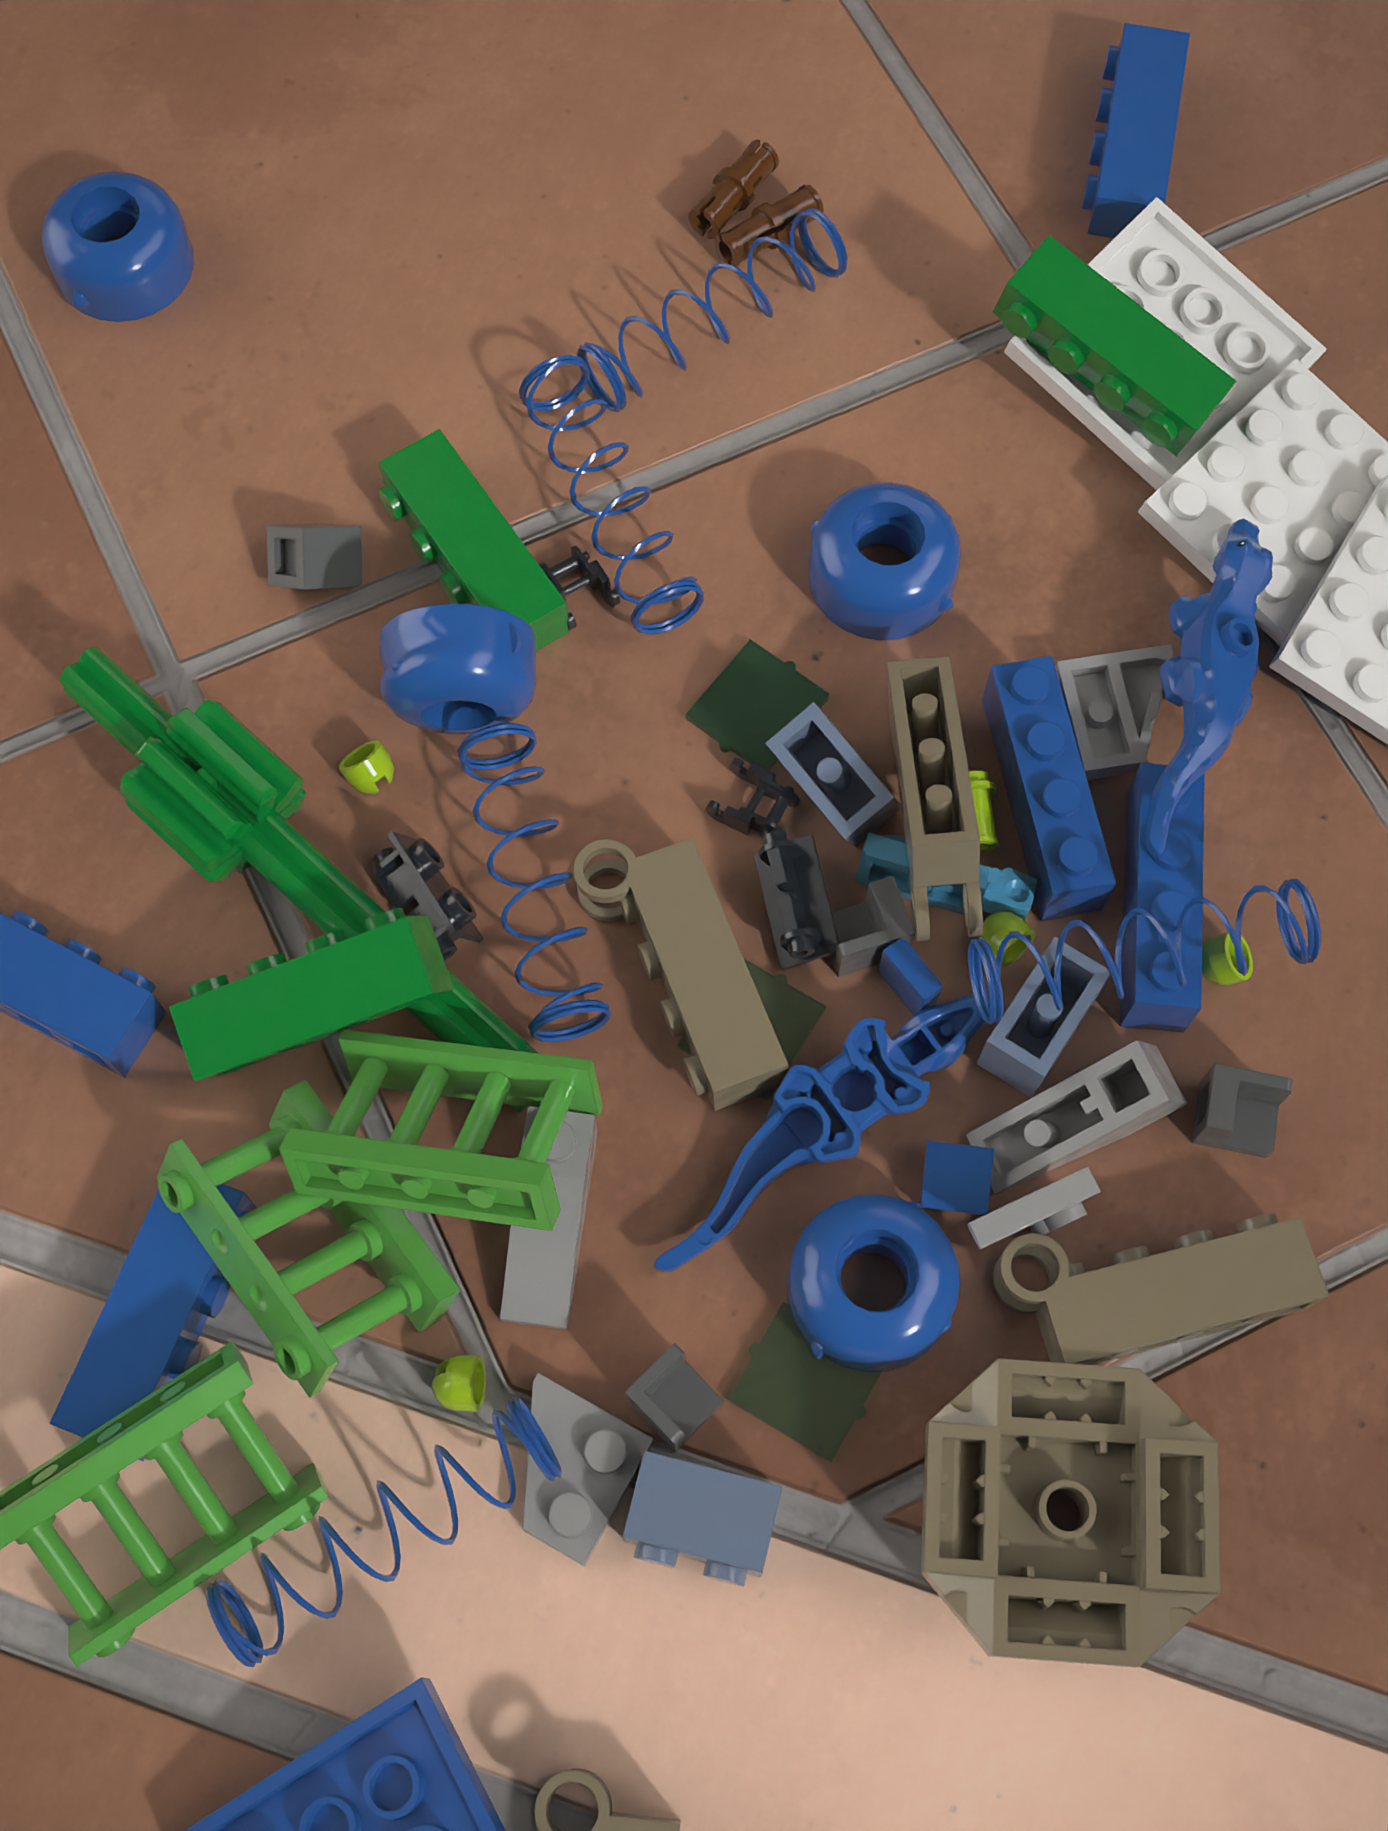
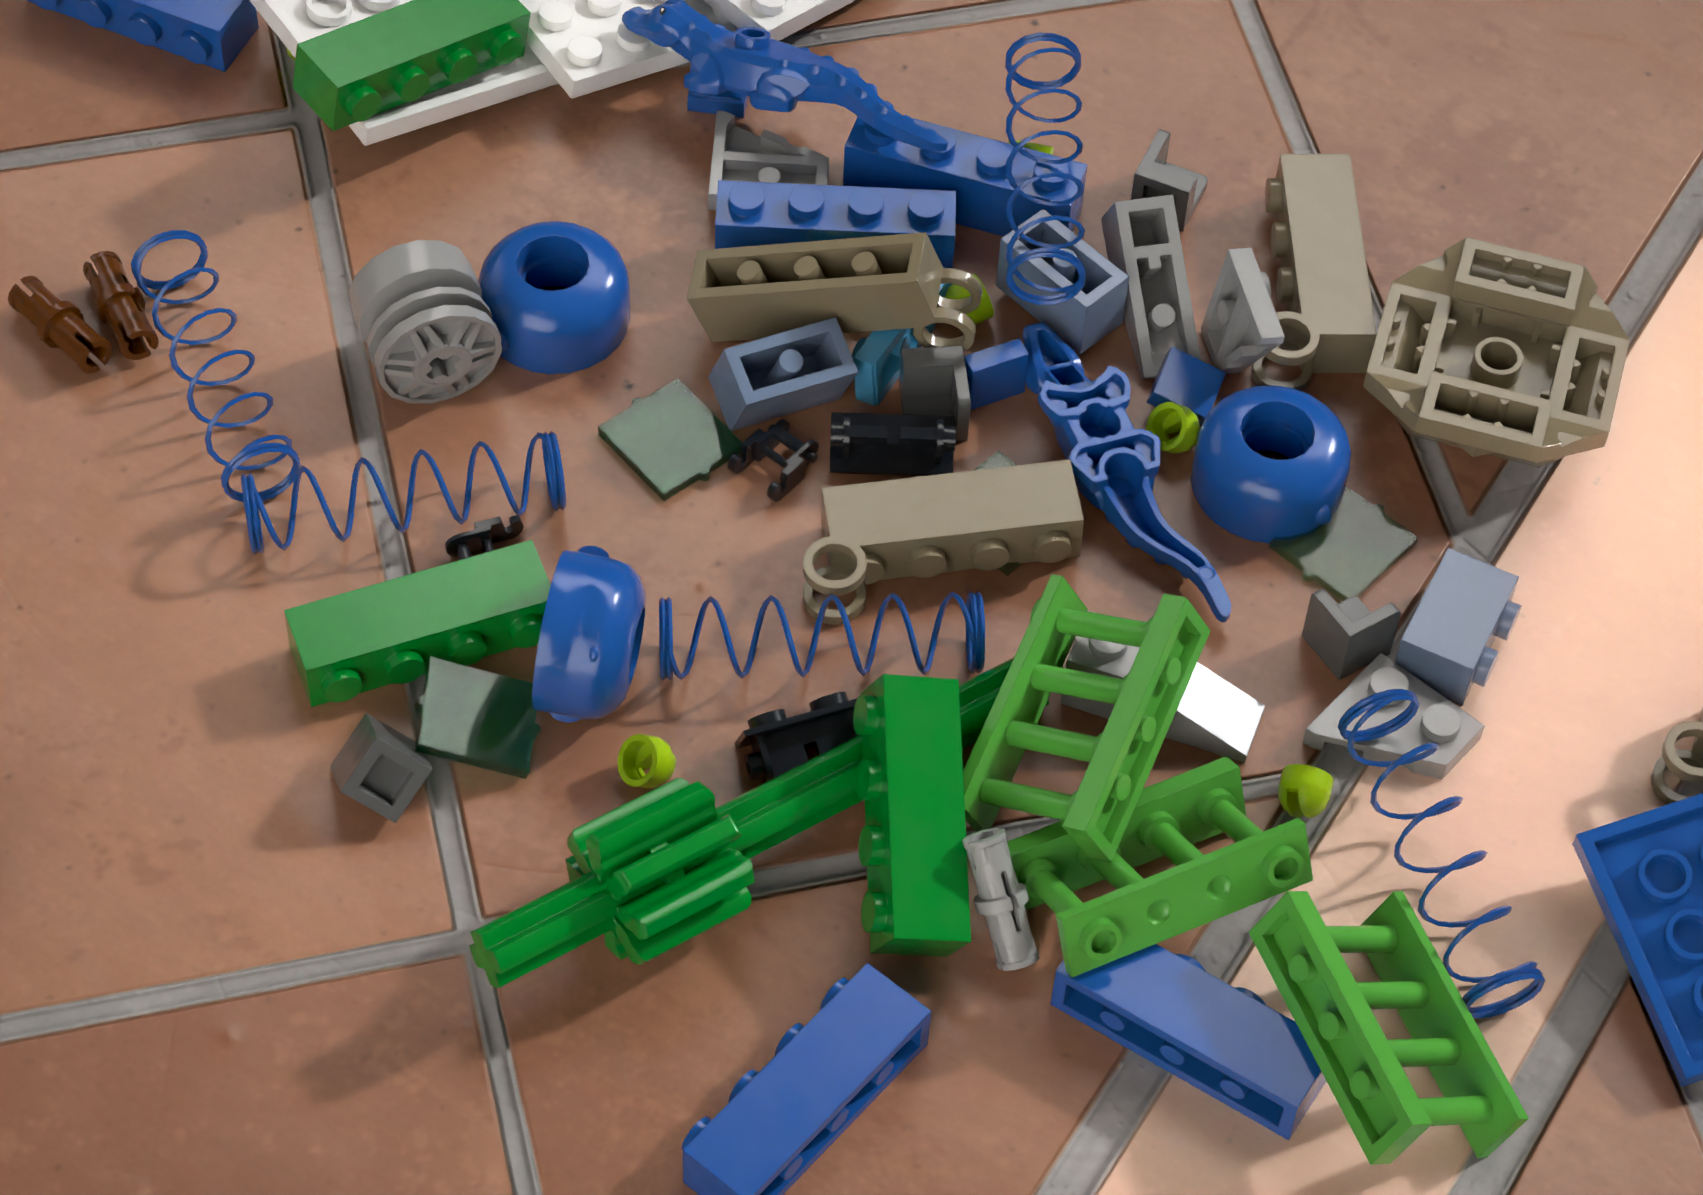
camera: 80 degrees left, 15 degrees down
(247, 1098) = (1001, 899): none -> light grey pin
(368, 600) = (476, 718): none -> clear green piece
(797, 450) = (424, 321): none -> light grey wheel
(893, 1171) = (1172, 418): none -> lime hinge

